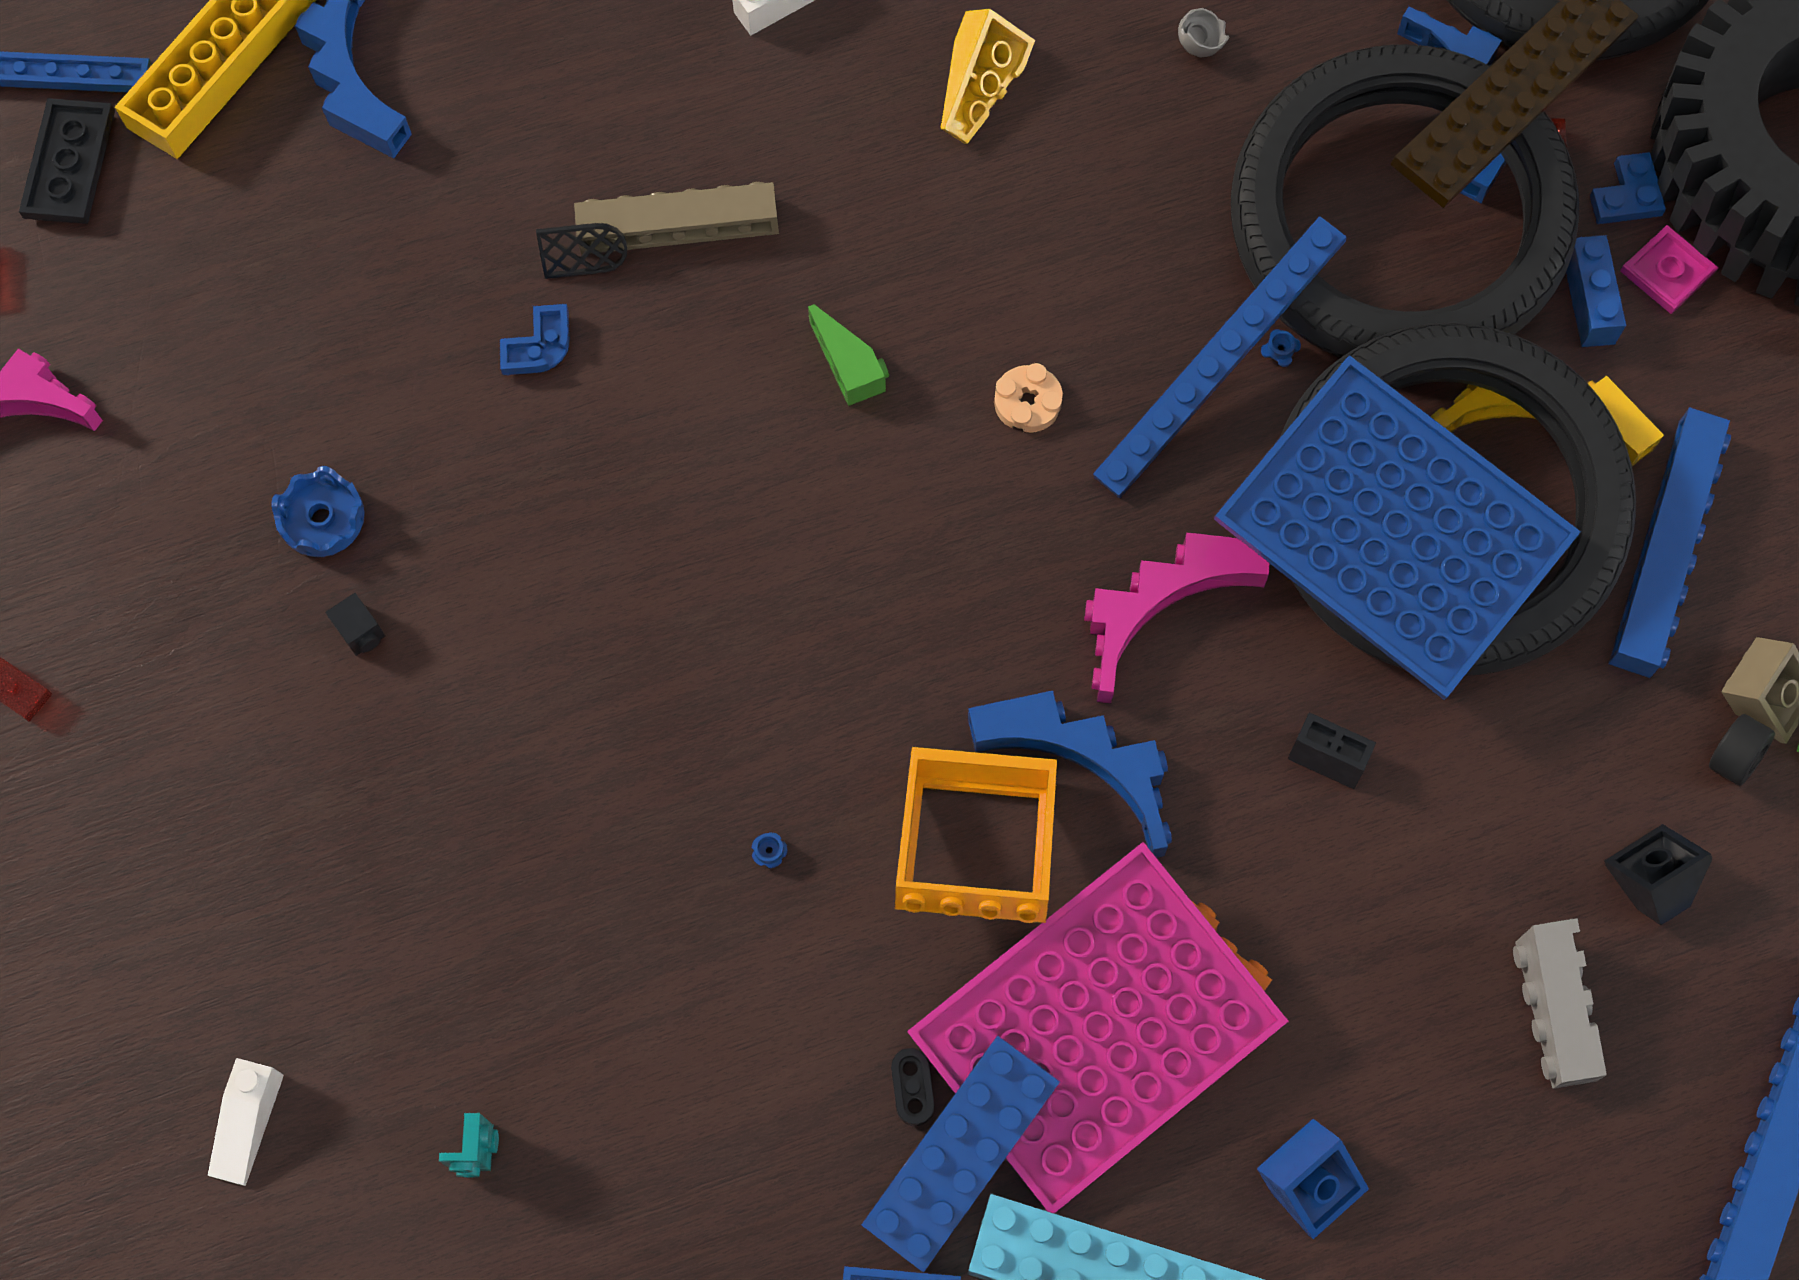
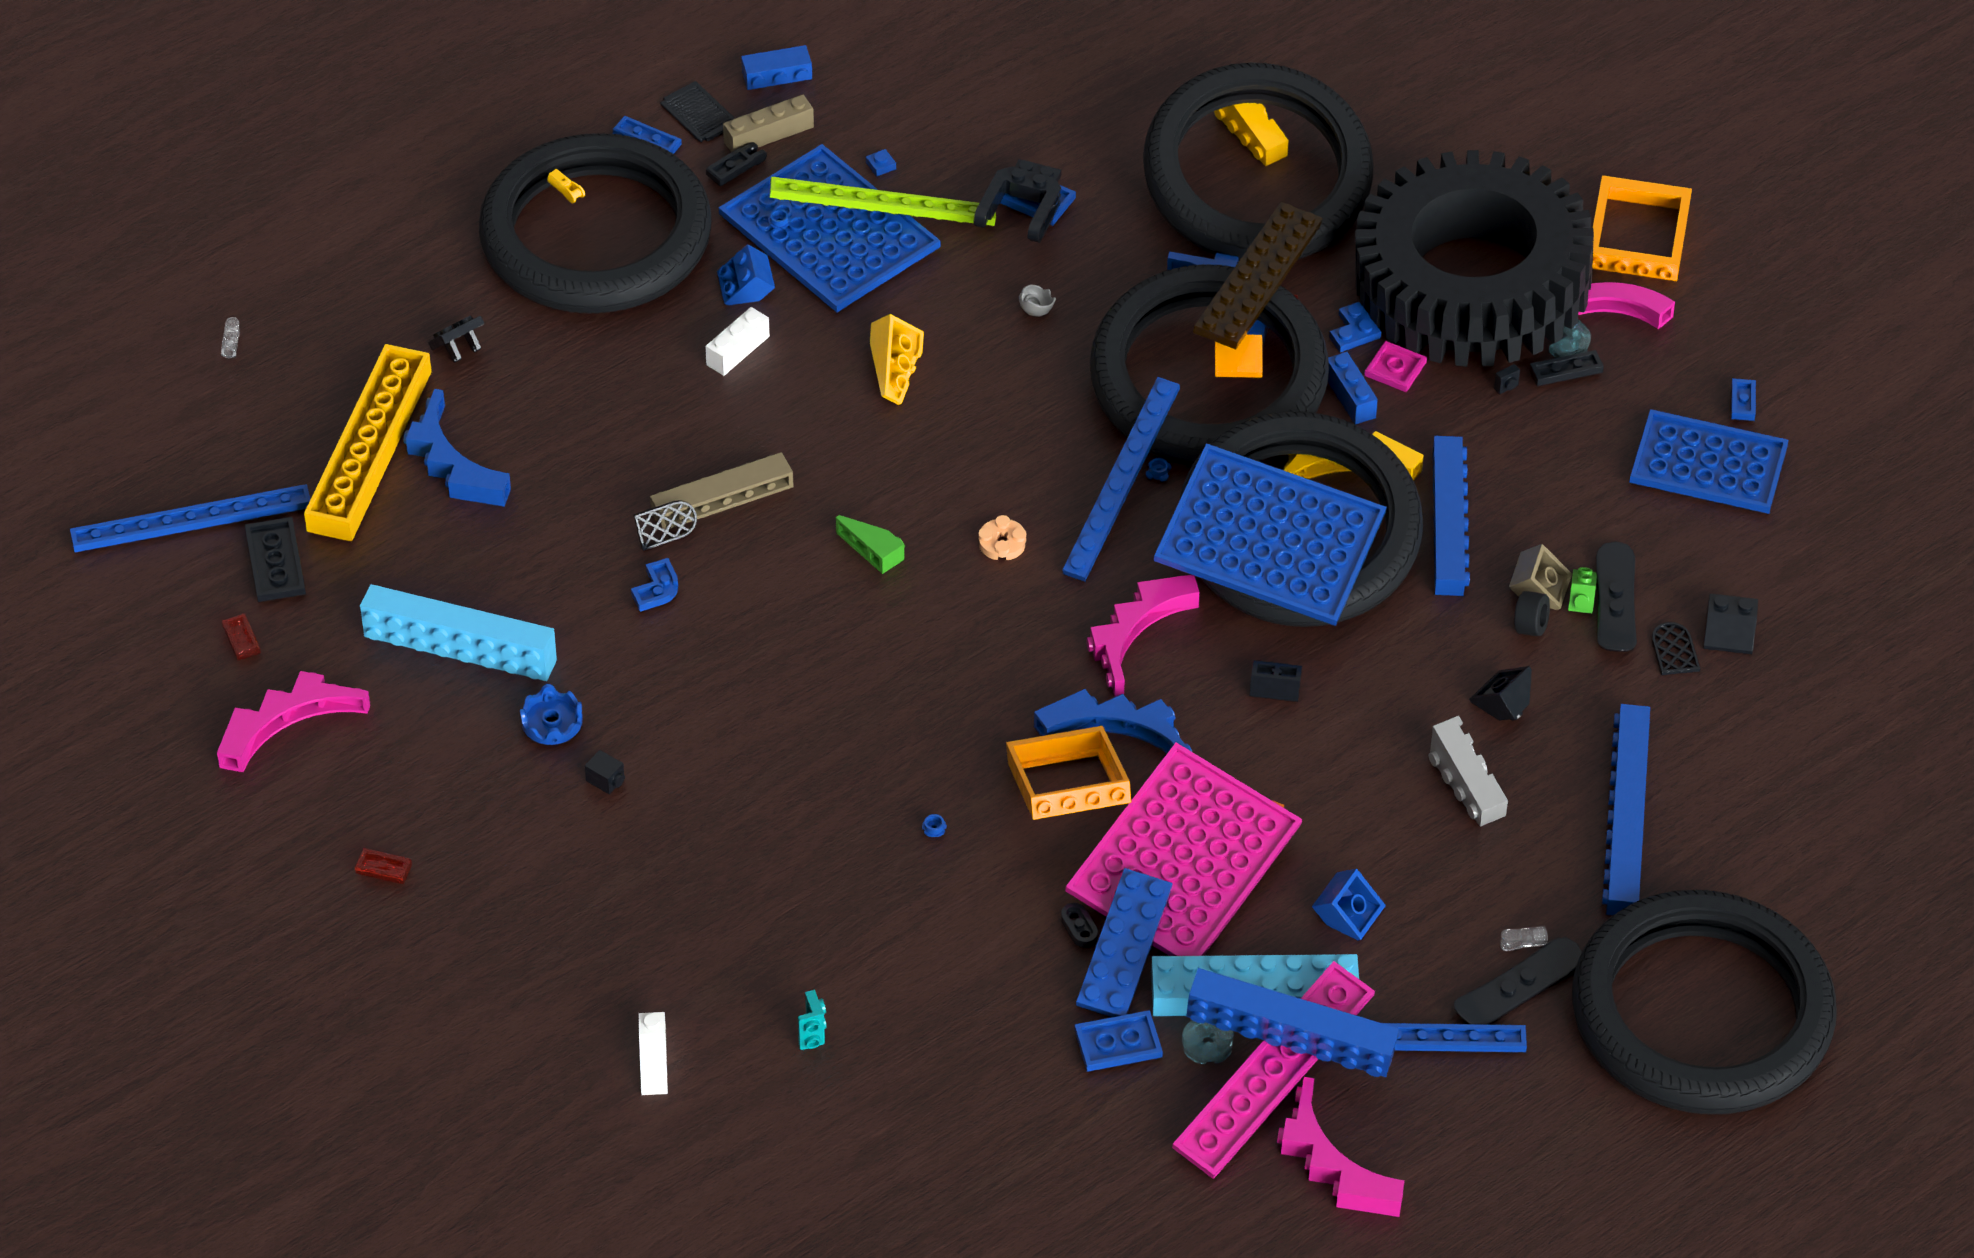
camera: 20 degrees left, 20 degrees down
(243, 348) = (458, 632): none -> medium azure brick
(1449, 226) = (1242, 362): none -> light orange tile

